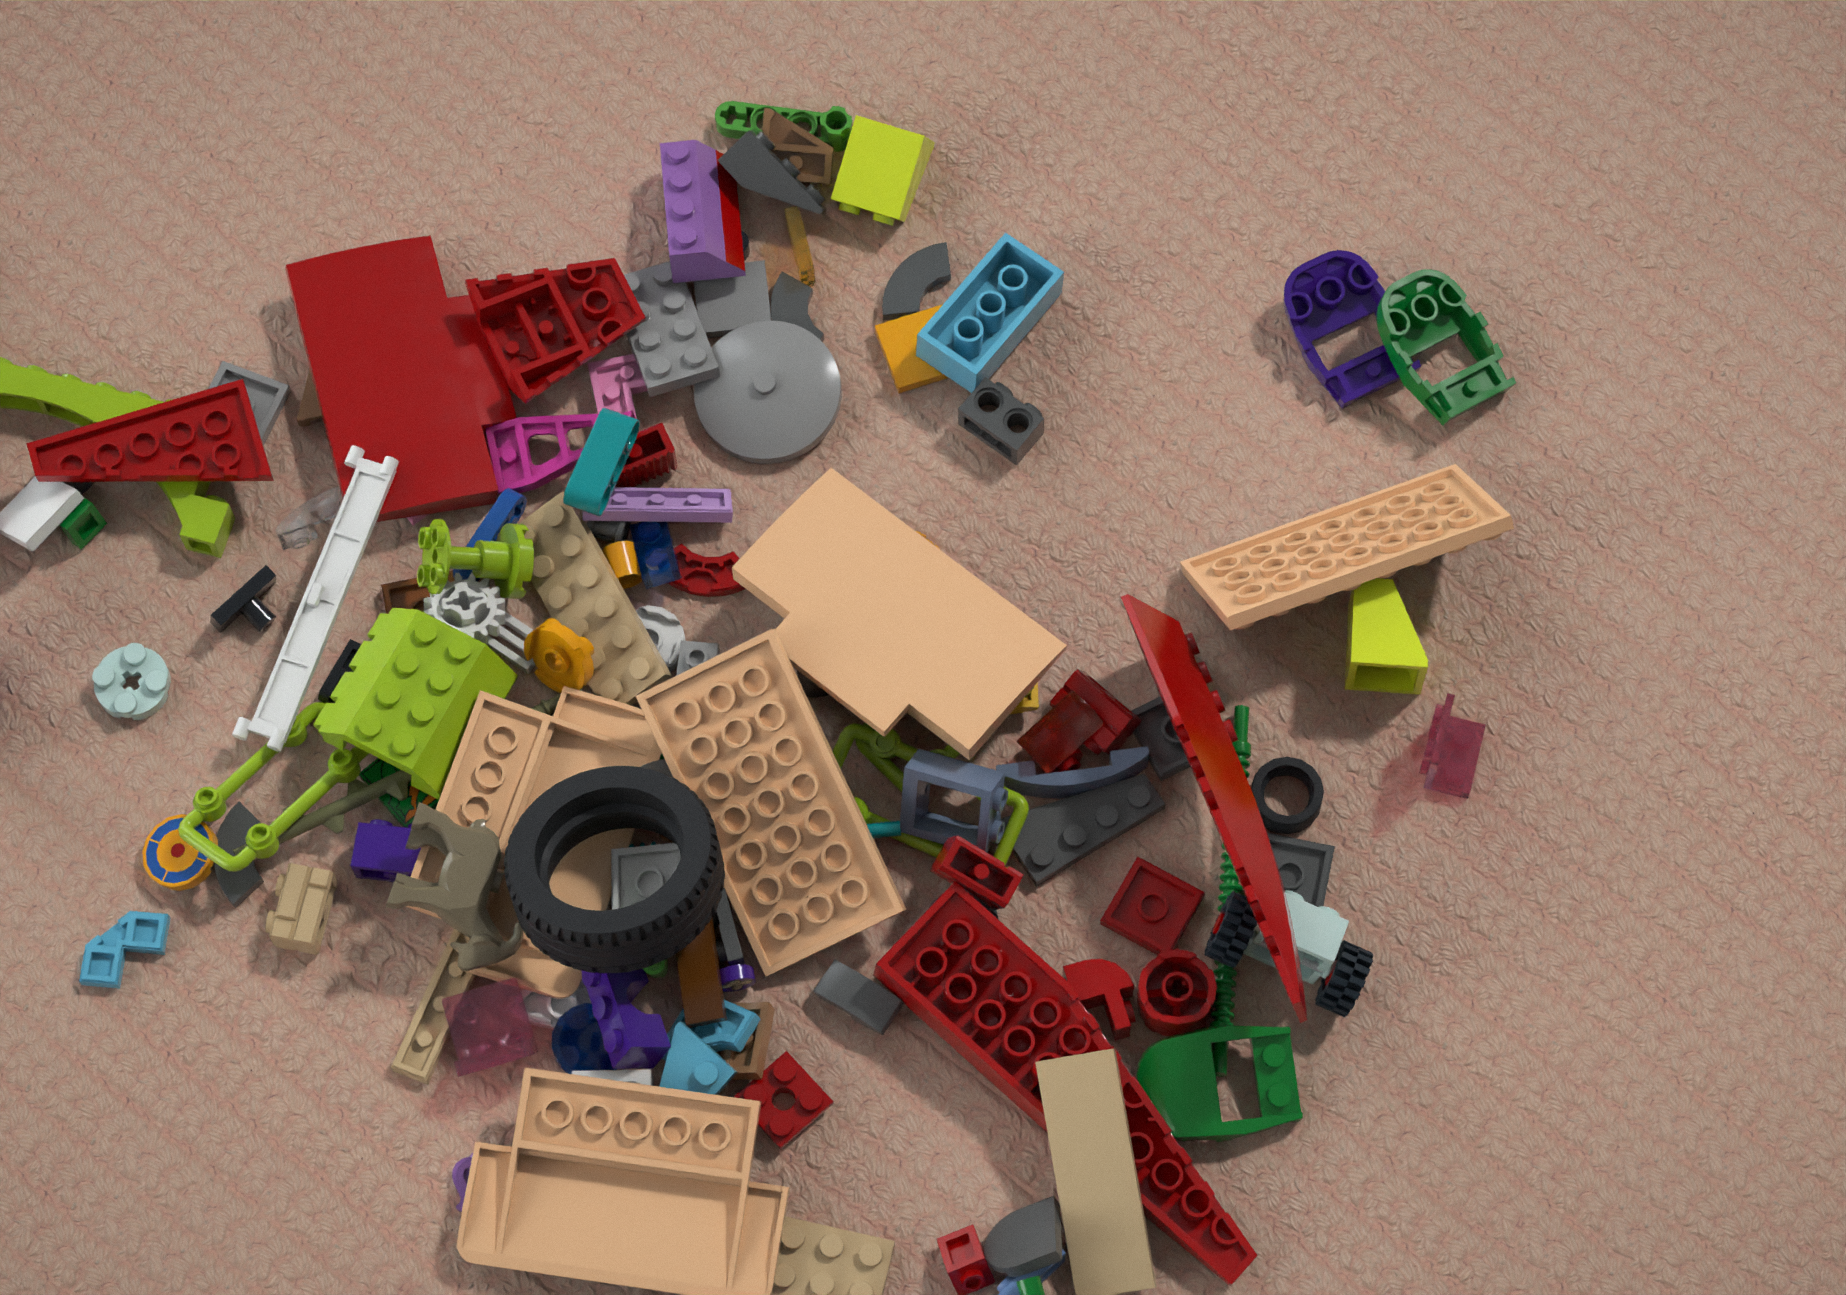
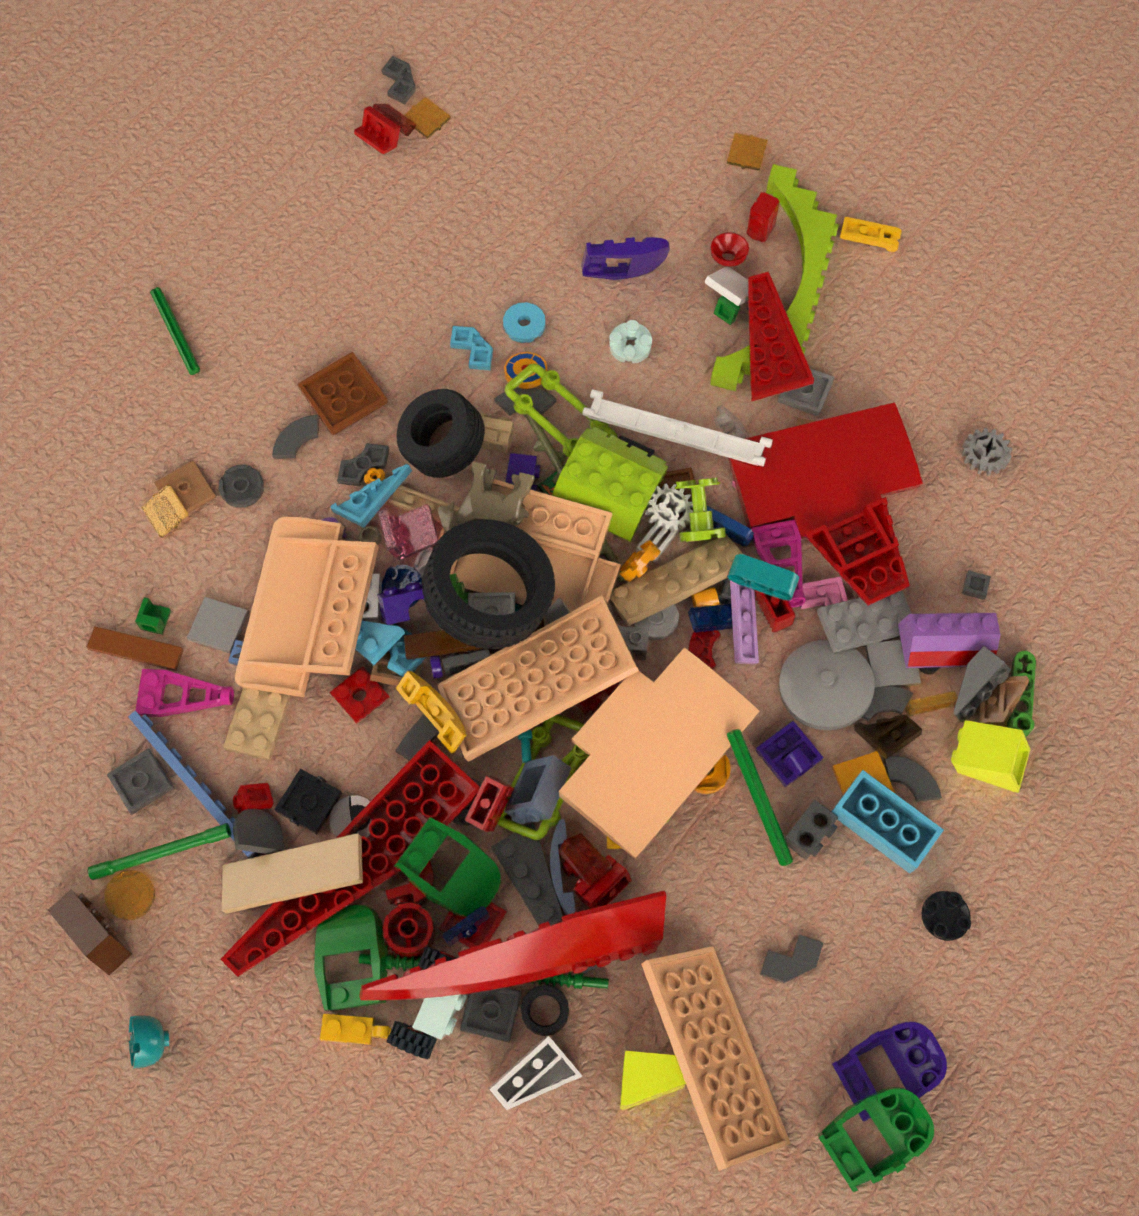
camera: 90 degrees right, 0 degrees up
(79, 839) = (520, 312): none -> medium azure tile
(208, 1166) = (342, 393): none -> dark orange plate
(247, 602) = (678, 396): black tile -> none
(270, 1008) = (421, 421): none -> black tyre
(290, 1248) = (294, 436): none -> dark grey tile
(362, 1139) = (353, 470): none -> dark grey tile
(373, 143) = (975, 450): none -> light grey gear
(380, 1110) = (368, 478): none -> light orange plate
(433, 1111) = (368, 501): none -> medium azure wing
(493, 1103) = (370, 534): none -> dark tan plate
(604, 174) = (976, 585): none -> dark grey plate
(819, 964) = (435, 708): none -> yellow slope
(849, 308) = (889, 735): none -> dark brown wing
(881, 447) = (789, 754): none -> dark purple plate
(959, 479) = (760, 797): none -> green axle
(967, 1170) = (308, 801): none -> black plate
(987, 1107) = (345, 811): none -> tile
(1104, 898) = (471, 884): none -> green slope
(1123, 246) = (946, 915): none -> black dish
(1169, 906) = (466, 927): none -> clear blue plate
(1195, 440) = (786, 968): none -> dark grey tile
(1327, 1079) = (351, 1029): none -> yellow plate
(1383, 805) = (535, 1073): none -> white wedge
(1451, 752) = (573, 1126): clear pink bracket -> none

